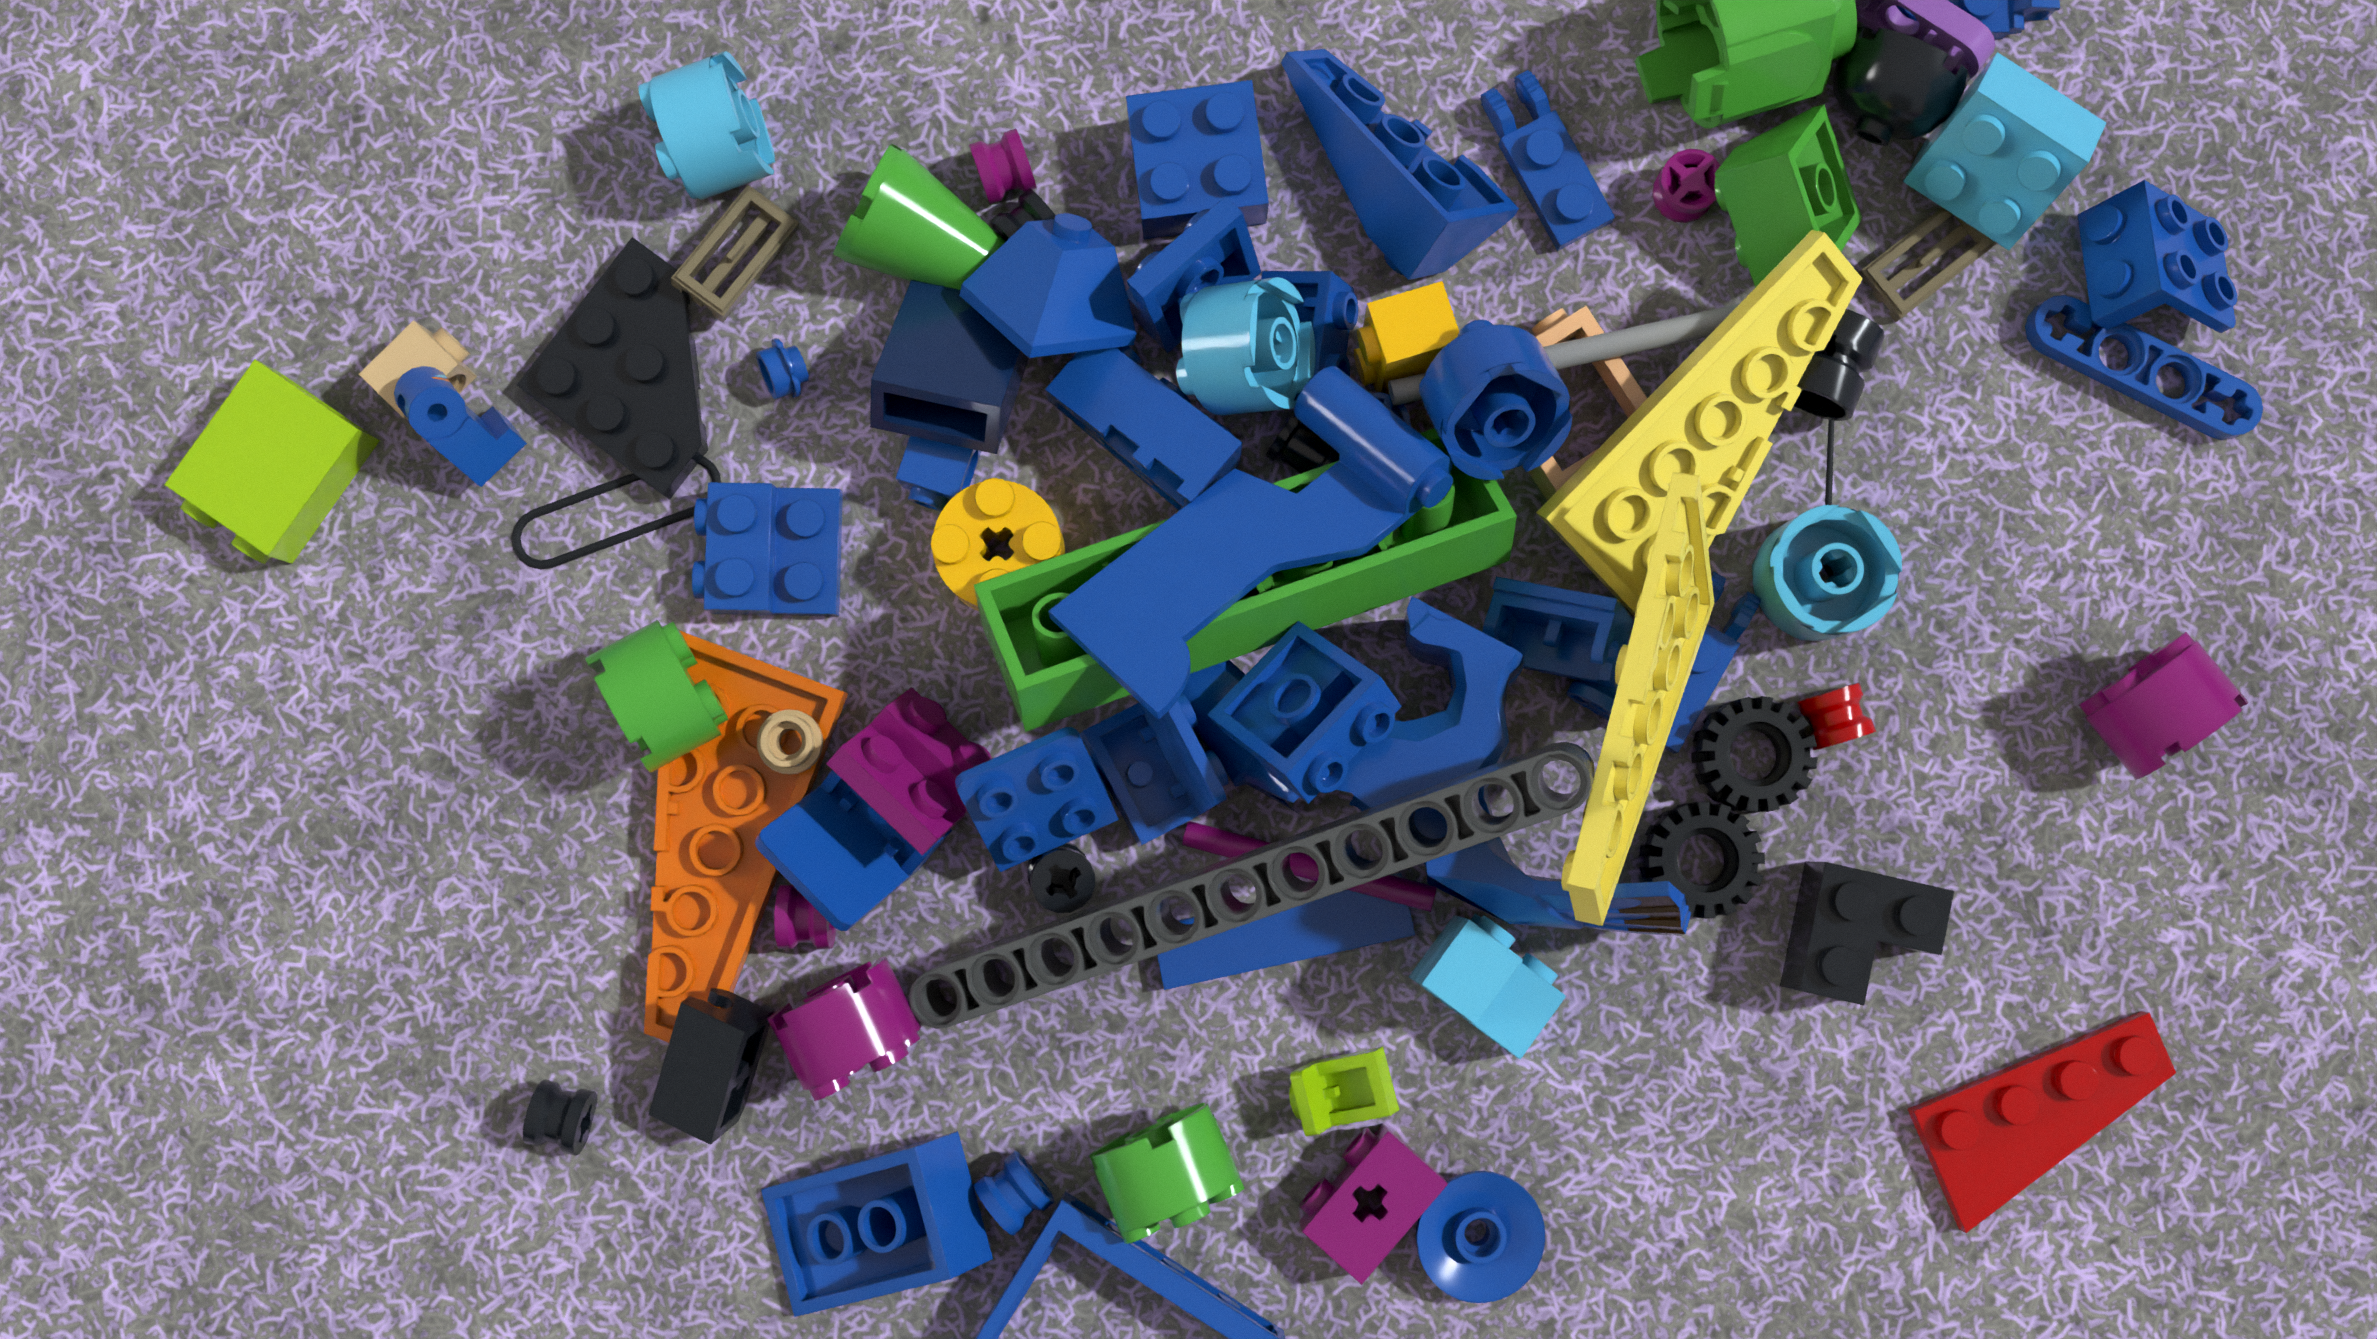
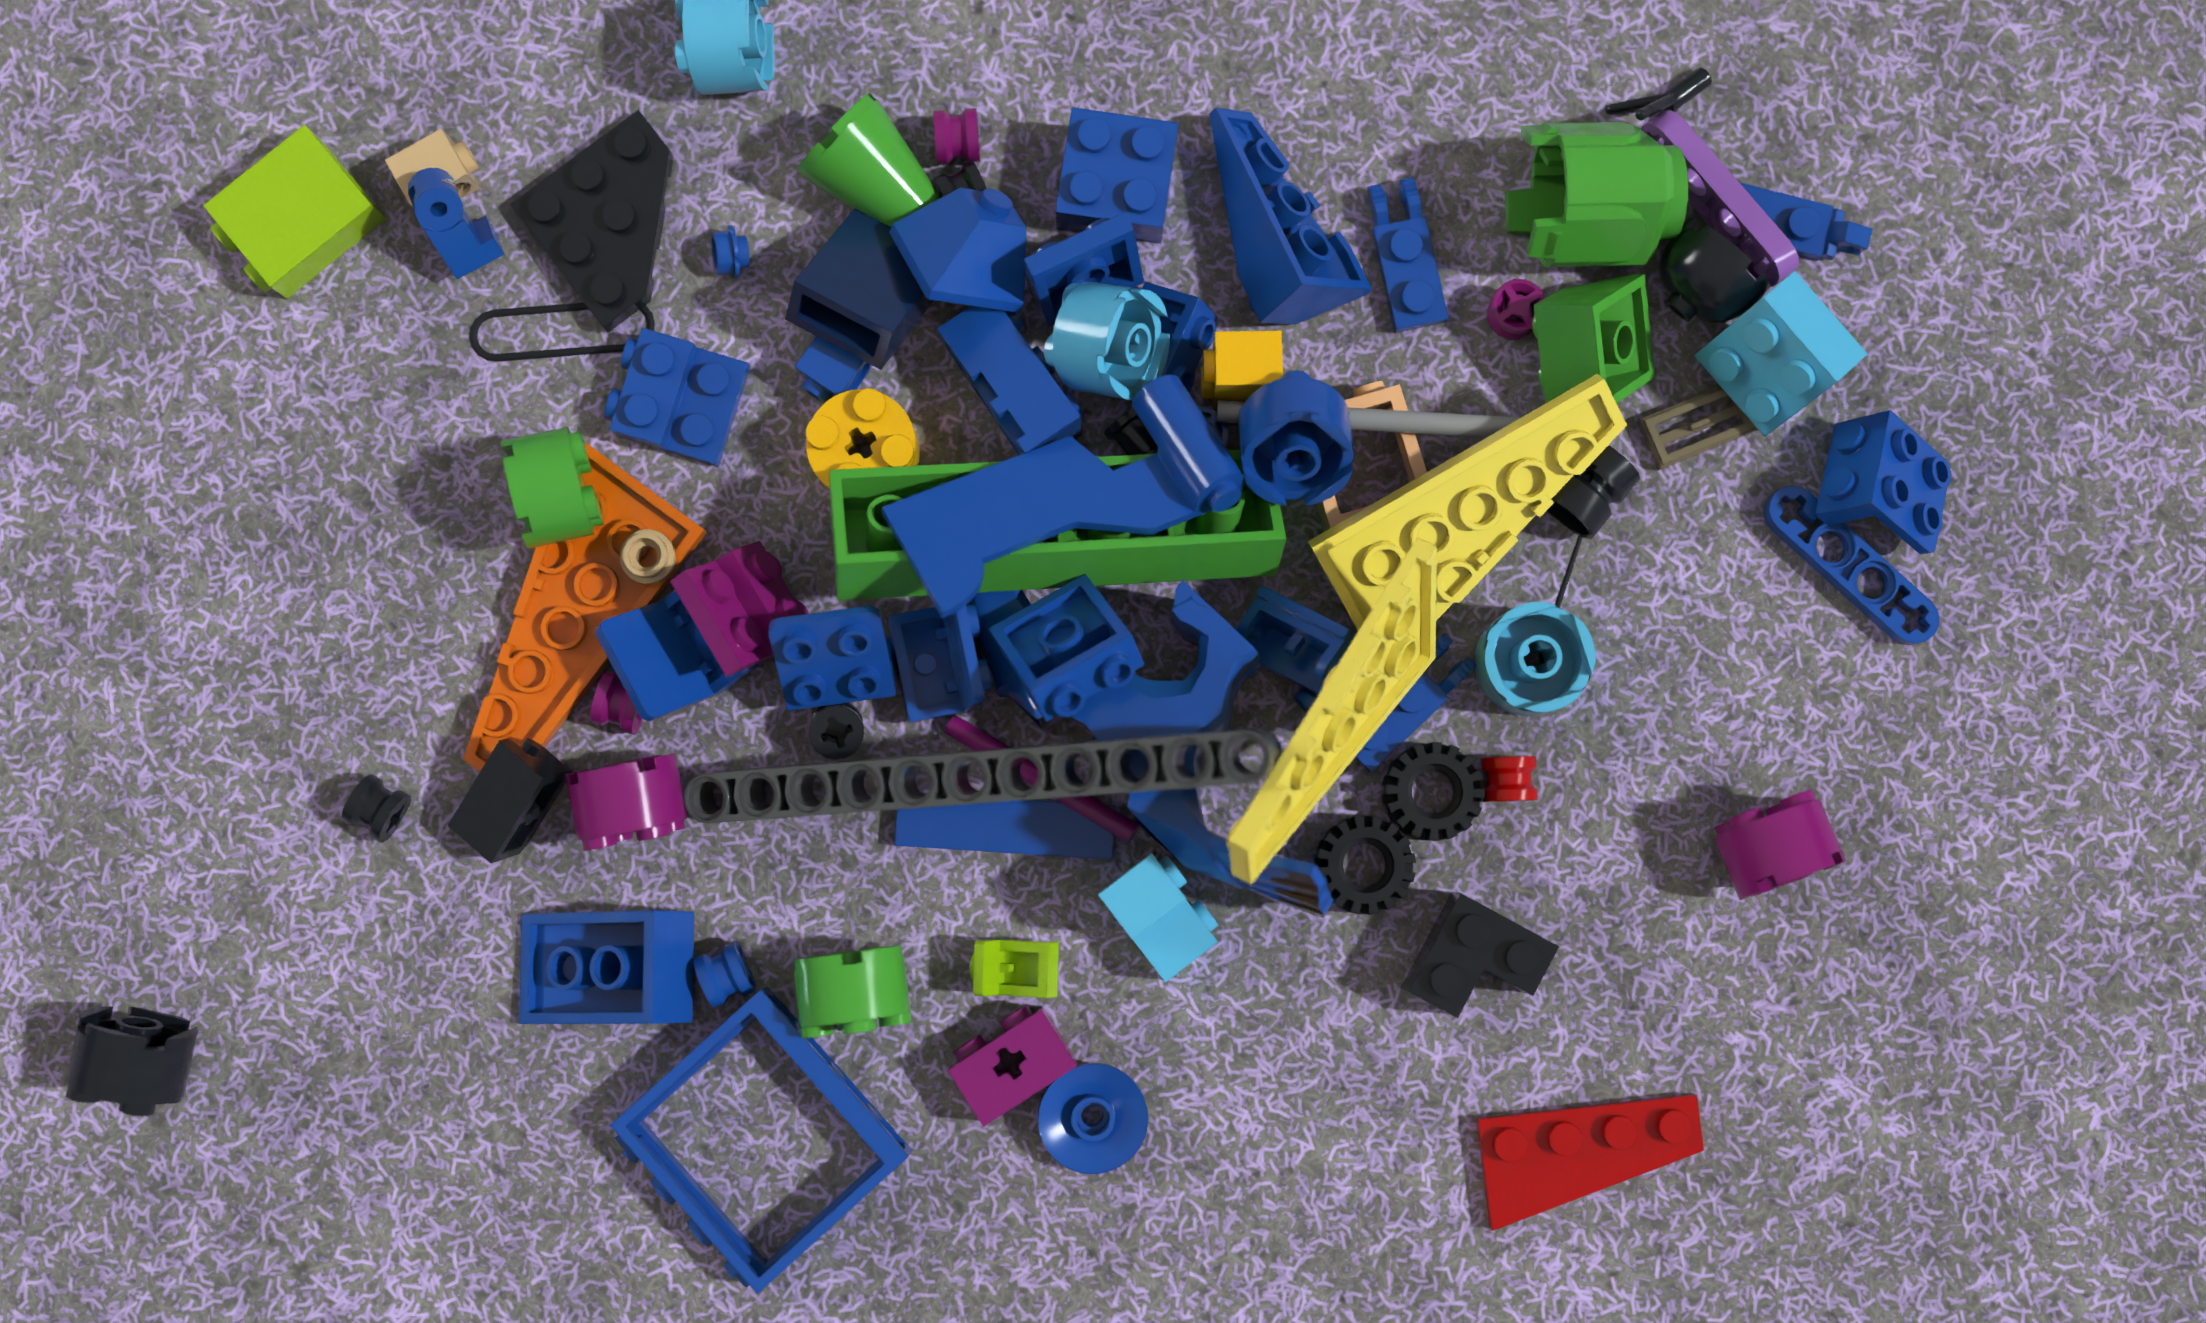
camera: 15 degrees right, 0 degrees up
(703, 293) = (683, 172): dark tan tile -> none

